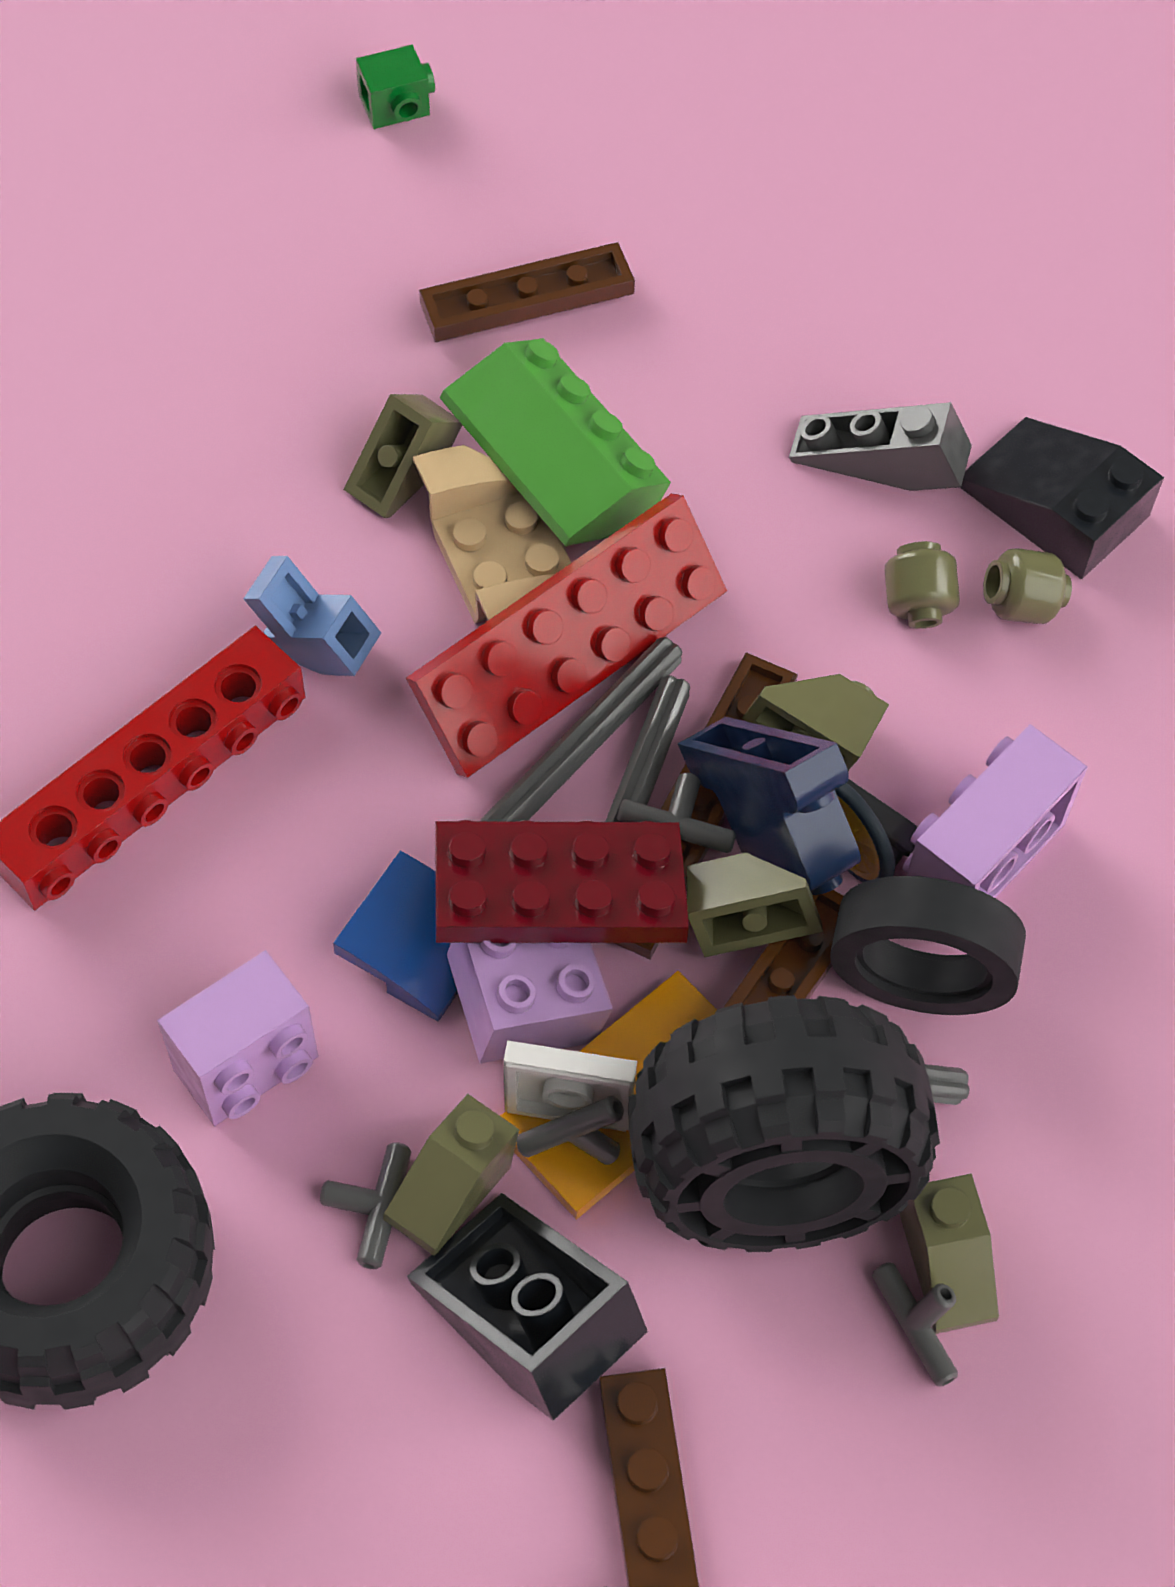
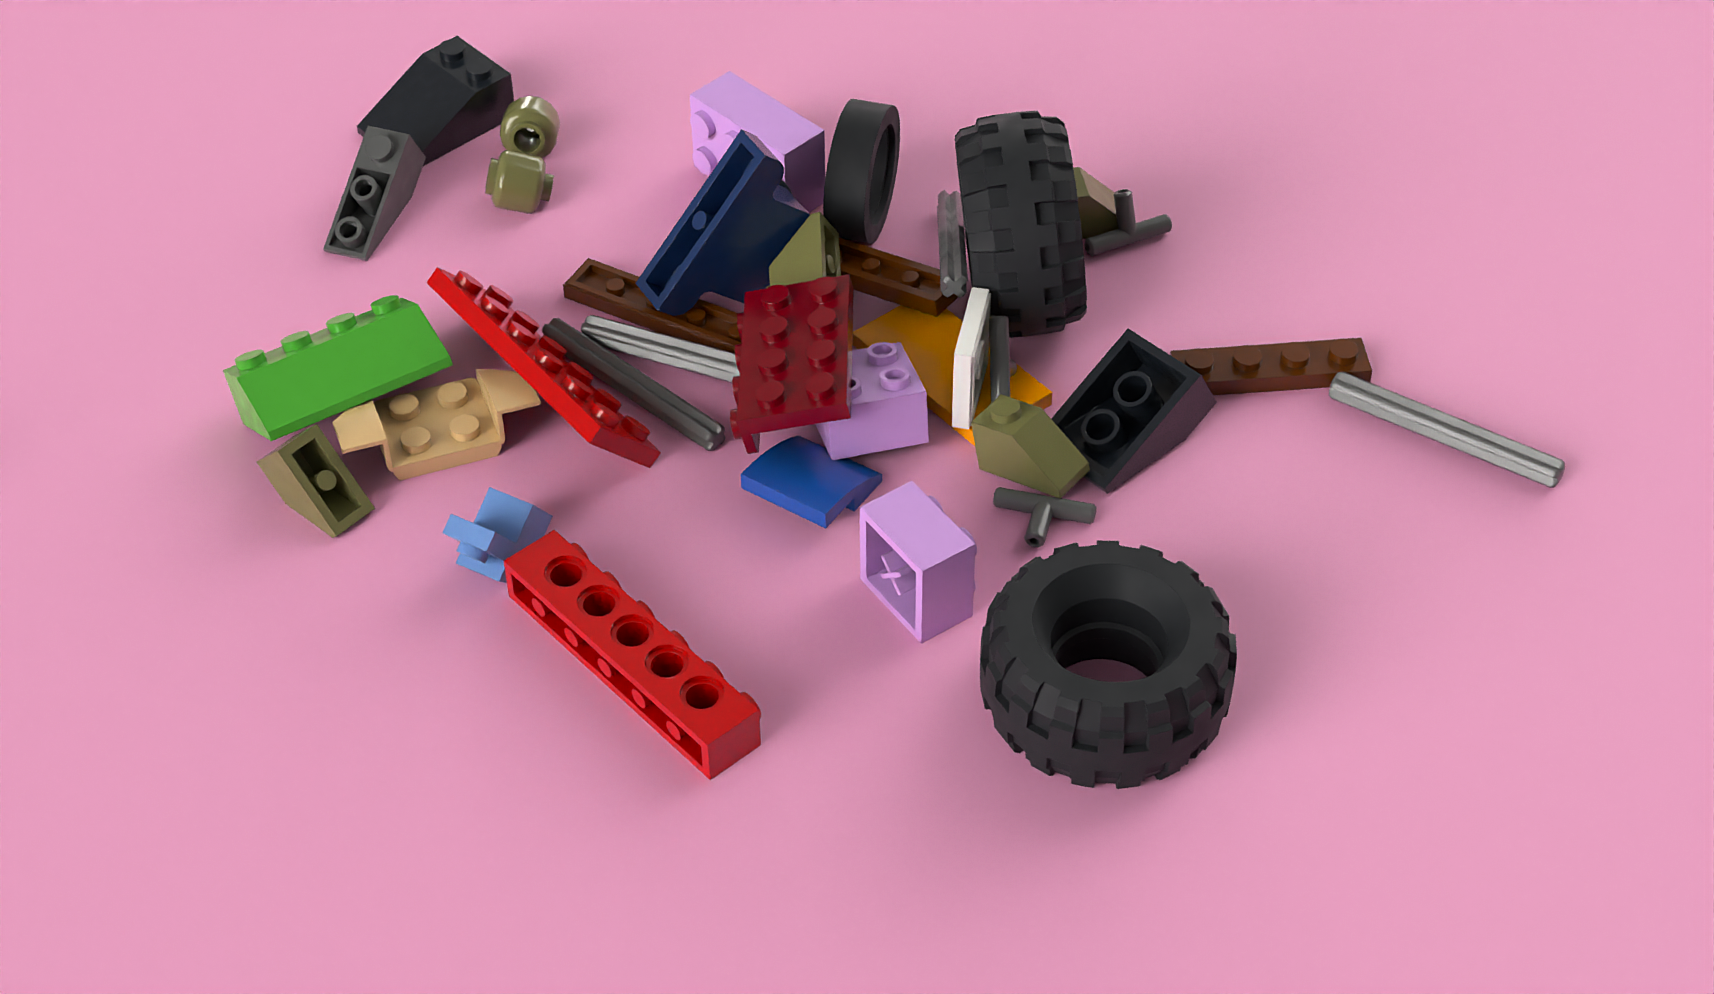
camera: 85 degrees left, 15 degrees down
(526, 291) = (143, 404): reddish brown plate -> none
(681, 811) = (722, 320): dark grey piece -> none
(823, 709) = (638, 232): olive slope -> none

